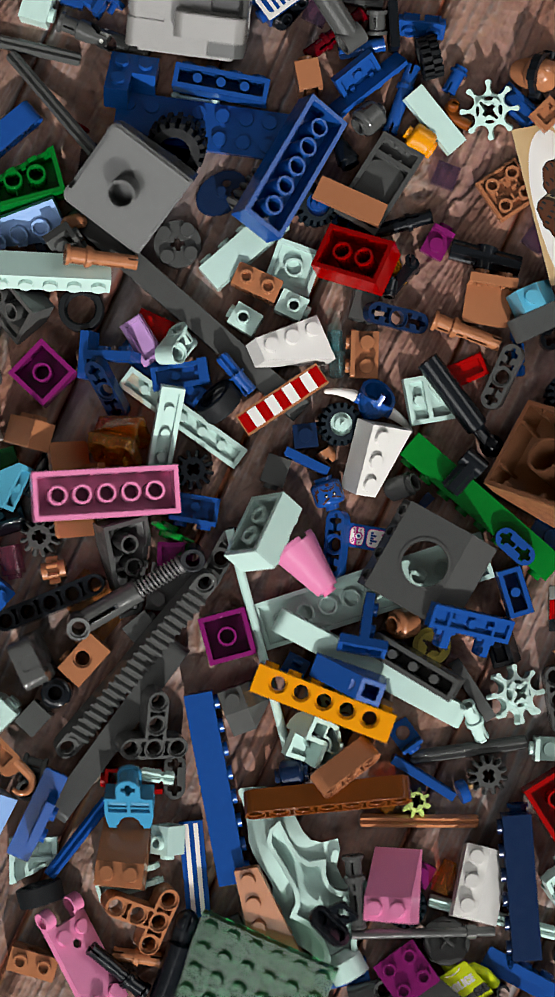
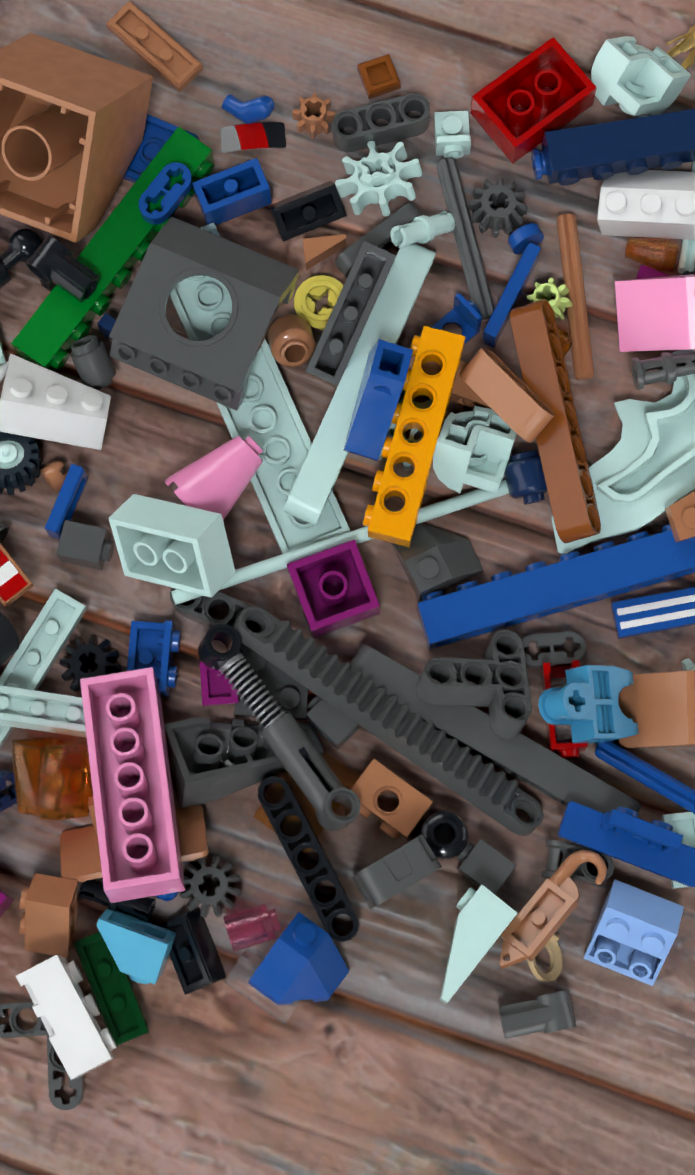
camera: 90 degrees left, 10 degrees down
(53, 570) = (259, 860): nougat gear -> none
(157, 775) = (552, 666): light aqua axle -> none
(167, 840) = (647, 647): light aqua brick -> none
(169, 531) = (185, 693): green plate -> none
(295, 663) = (362, 492): blue tile -> none
(305, 436) = (28, 506): dark blue brick -> none
(327, 493) = (110, 466): blue head -> none
(328, 551) = (175, 460): blue beam -> none
(364, 642) = (320, 384): blue bracket -> none
(365, 536) = (171, 410): tile -> none
(467, 643) = (320, 248): none -> nougat piece
(483, 627) = (276, 258): blue hinge -> none

